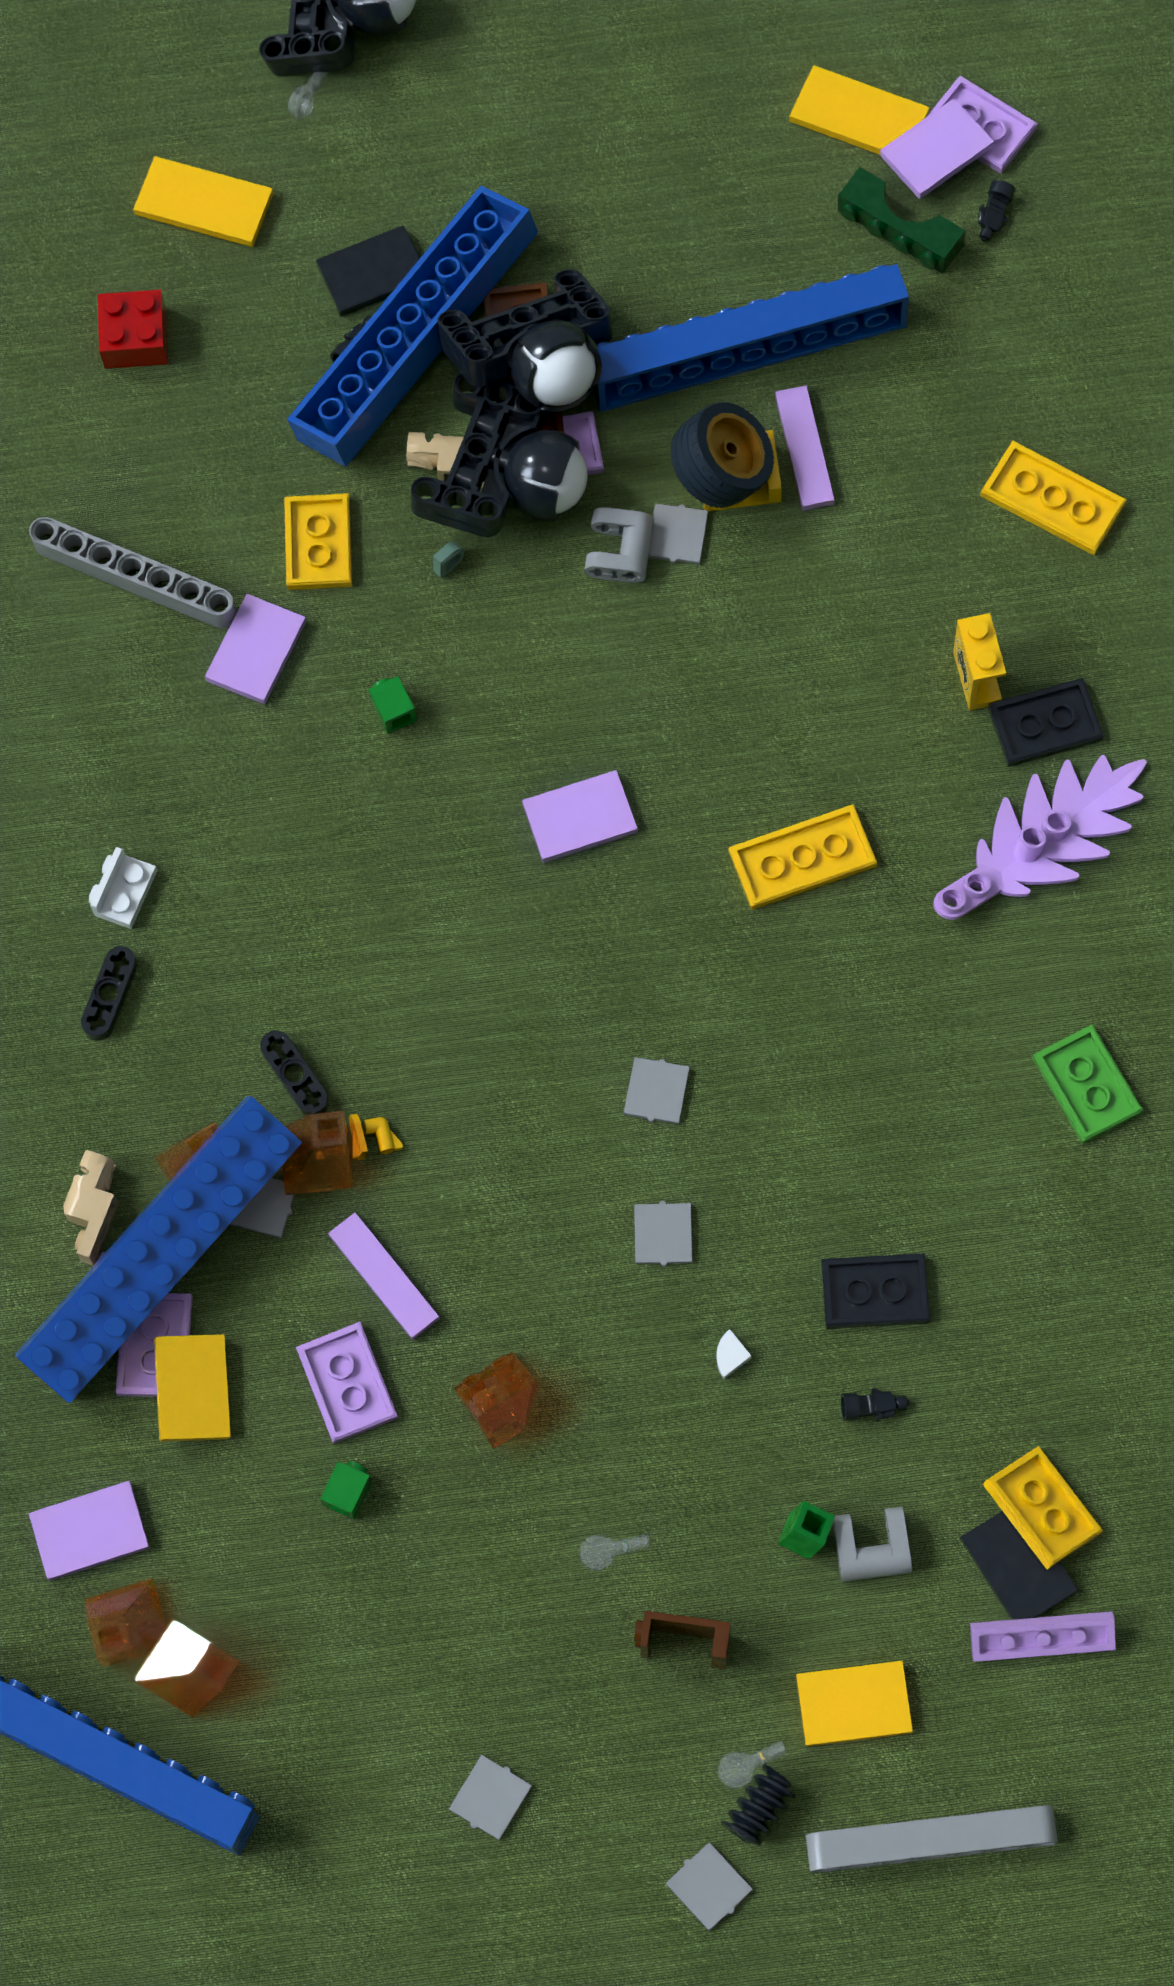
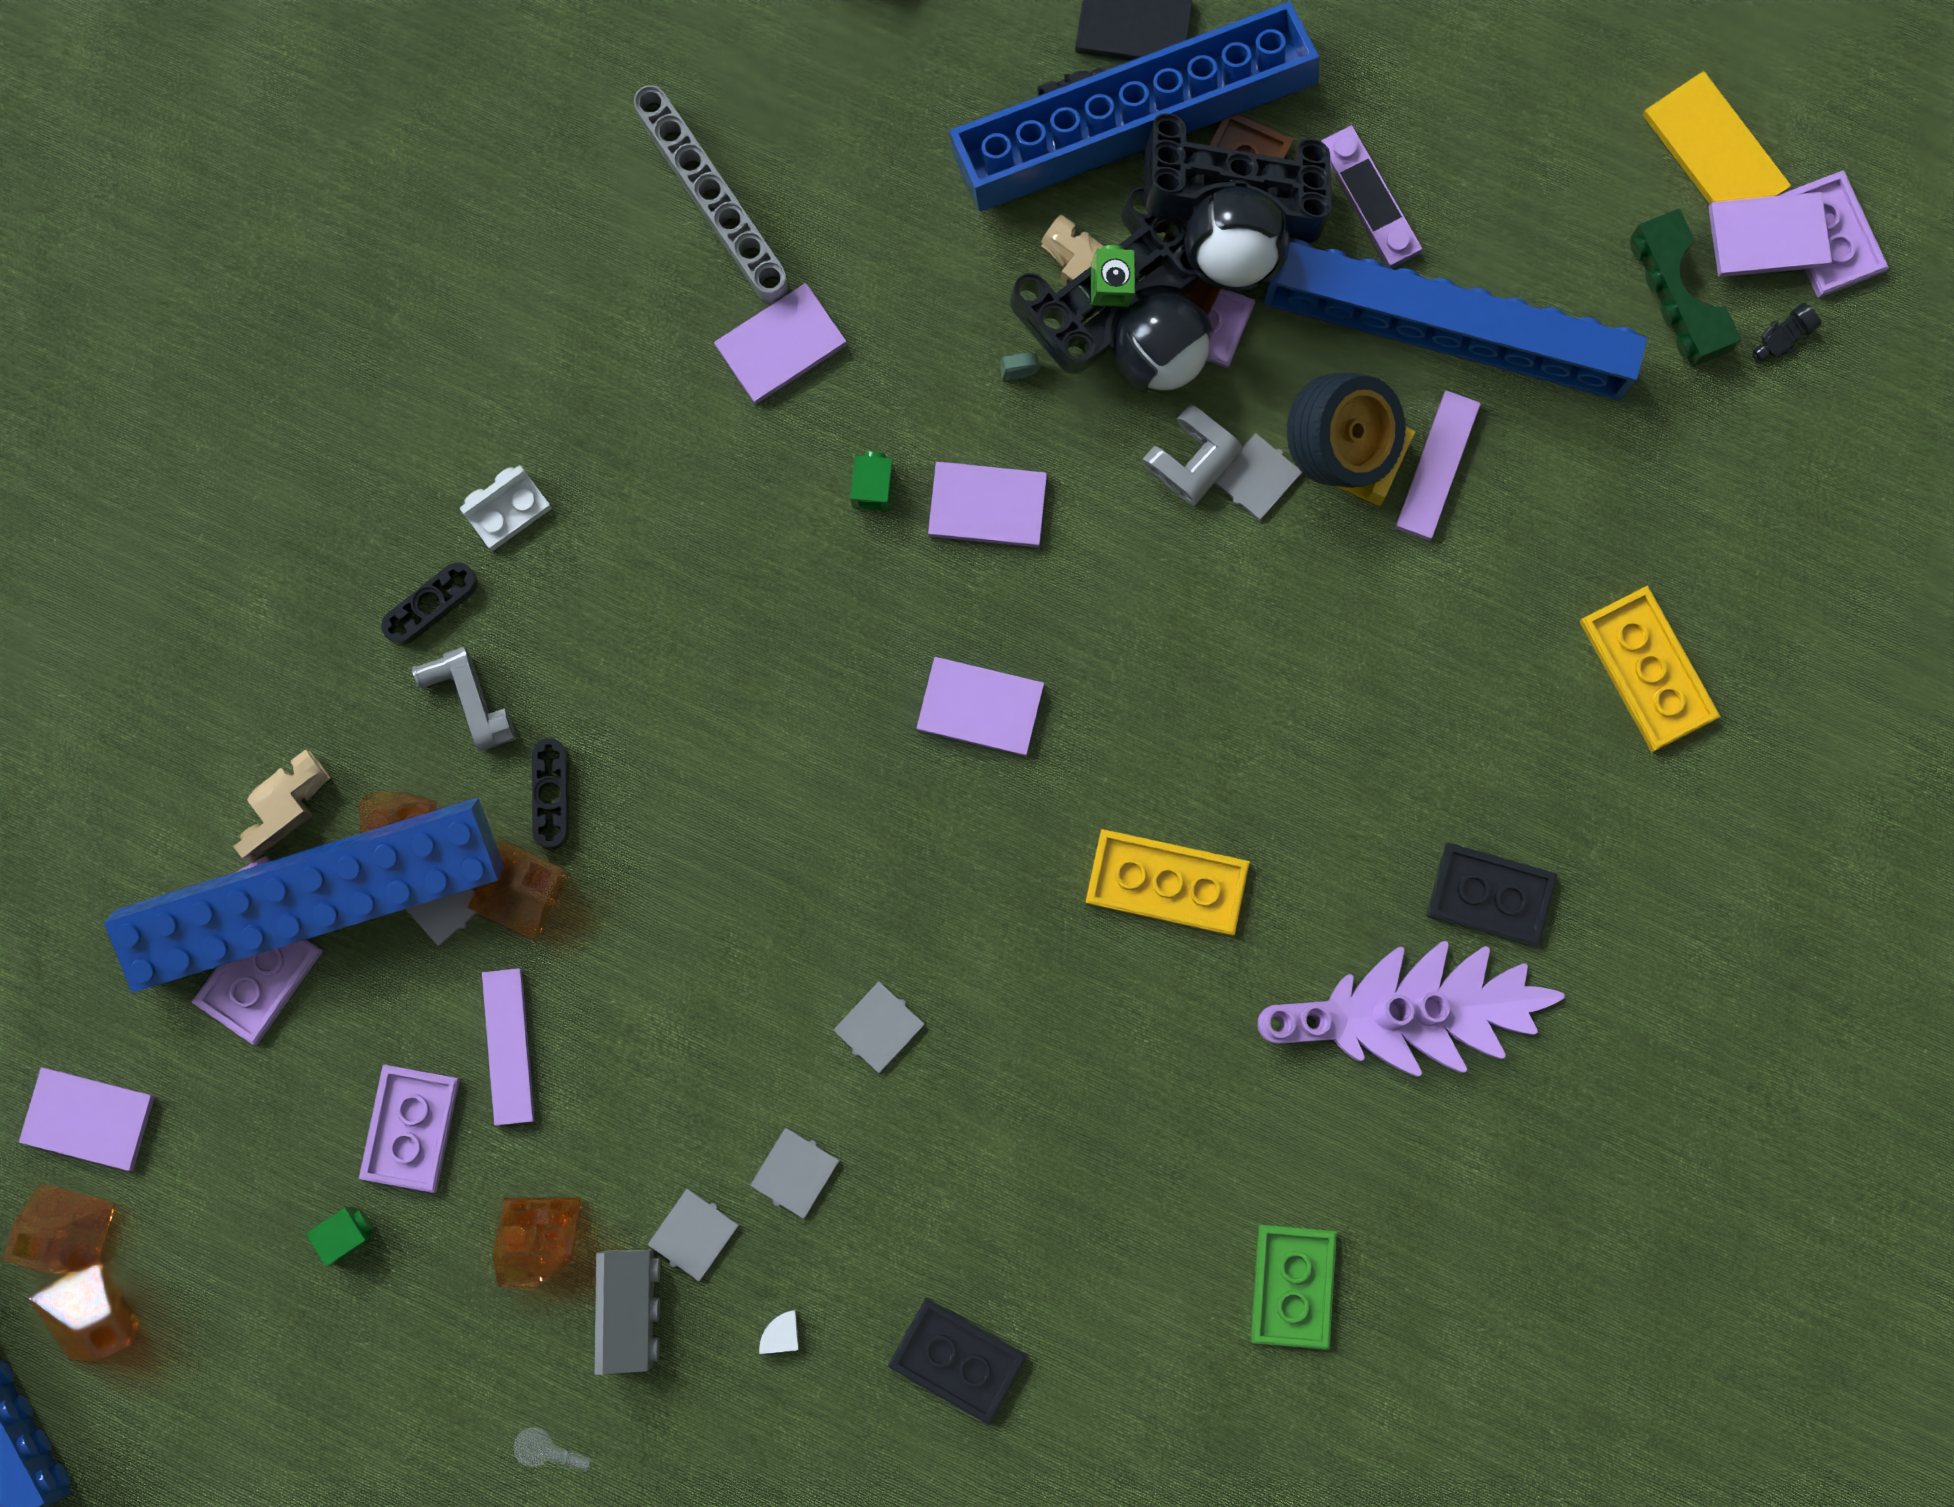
camera: 30 degrees right, 10 degrees up
(192, 1388) = (261, 1044): yellow tile -> none
(214, 1054) = (486, 728): none -> light grey beam
(318, 541) = (908, 271): yellow tile -> none
(385, 1137) = (596, 896): yellow piece -> none
(481, 444) = (1112, 276): none -> bright green brick
(489, 670) = (987, 504): none -> lavender tile
(603, 1403) = (626, 1311): none -> light grey slope
(616, 1325) = (693, 1234): none -> light grey piece
(631, 291) = (1371, 198): none -> lavender plate
(880, 1404) = (889, 1476): black piece -> none
(978, 660) = (1463, 798): yellow panel -> none

